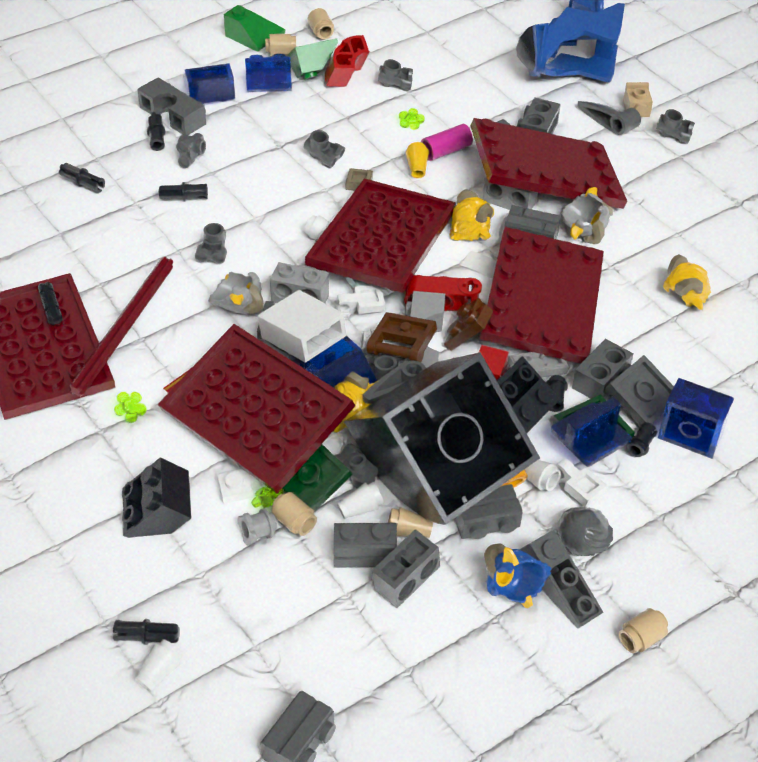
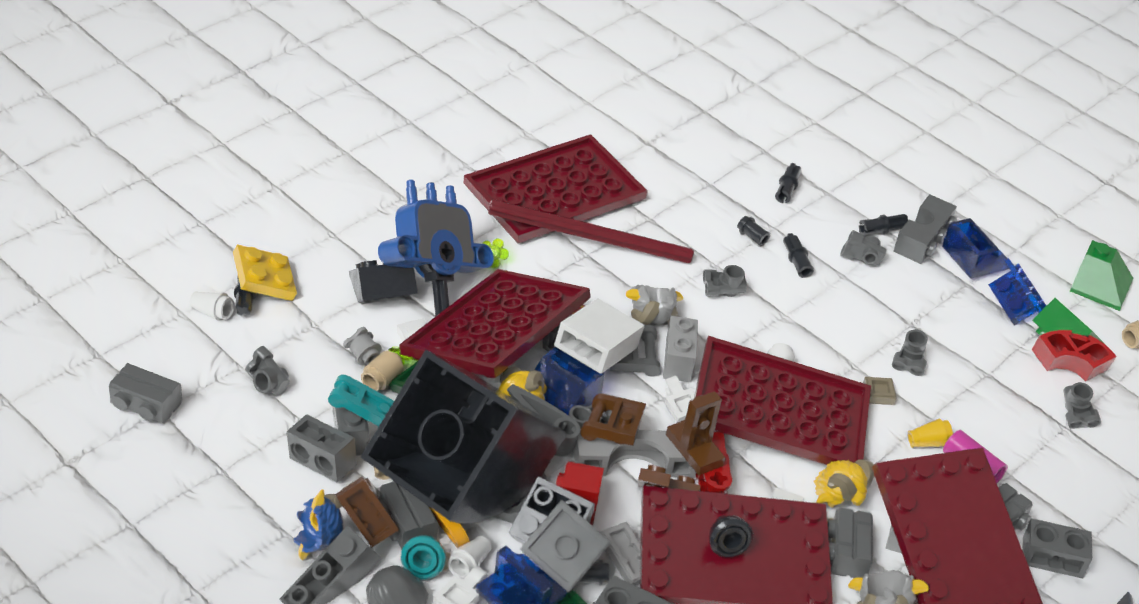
camera: 75 degrees right, 5 degrees down
(50, 303) = (597, 179): black axle -> none
(122, 607) = (264, 272): none -> yellow plate
(143, 213) = (749, 227): none -> black pin
(147, 431) = (435, 241): none -> piece
(280, 44) = (1081, 302): tan brick -> none
(284, 612) = (266, 373): none -> dark grey plate
(374, 511) = (359, 399): none -> teal plate
(411, 118) = (1011, 429): clear neon green plant -> none
(438, 284) = (695, 434): none -> reddish brown bracket
(504, 527) = (367, 511): none -> reddish brown bracket
(541, 502) = (423, 557): none -> teal brick
(543, 284) = (730, 536): none -> black brick
(557, 388) = (565, 546): none -> tile

